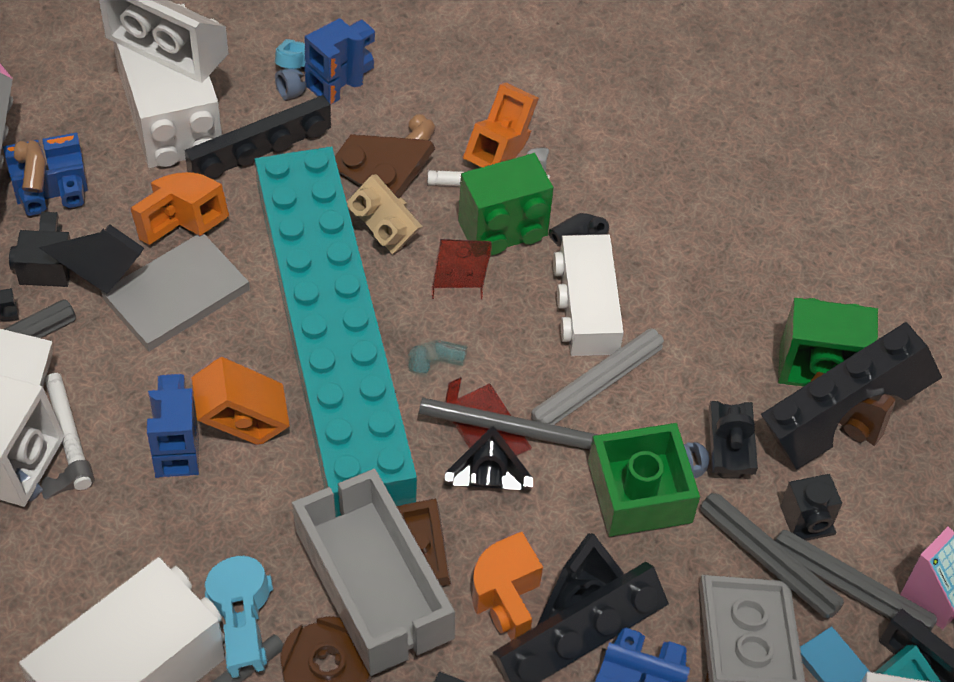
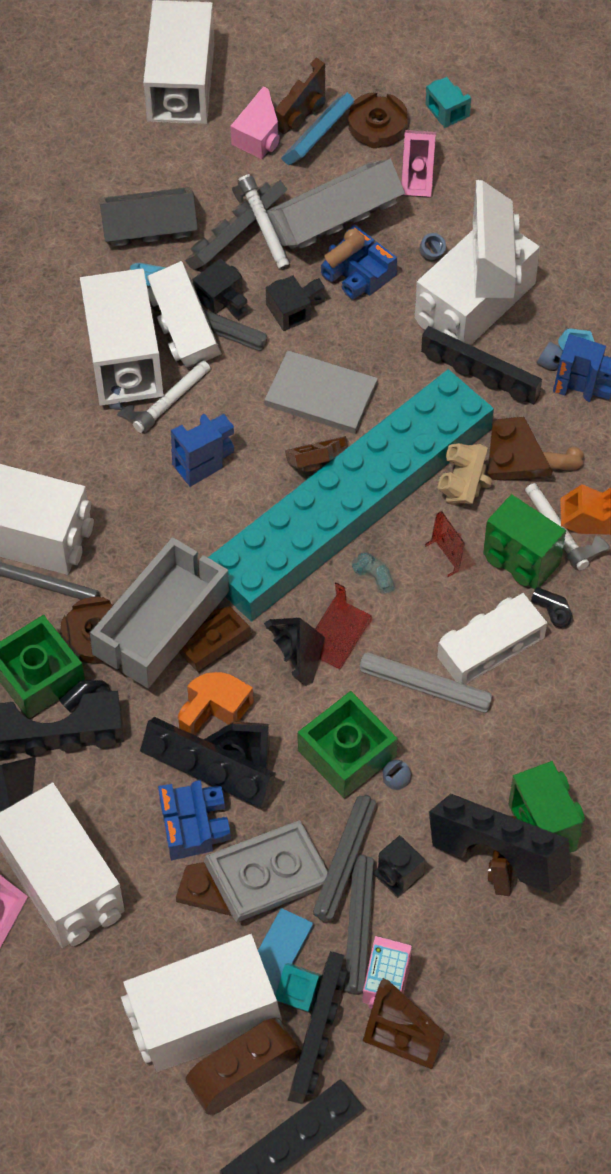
camera: 65 degrees right, 5 degrees up
(80, 105) = (436, 243): none -> sand blue hinge
(97, 257) = (298, 328): black slope -> none
(180, 200) = (387, 348): orange brick -> none
(234, 581) = (119, 554): medium azure piece -> none
(240, 401) = (244, 472): orange brick -> none
(260, 329) = (312, 455): none -> reddish brown wing
(506, 423) = (344, 645): dark grey piece -> none
(732, 439) = (424, 787): black hips -> none

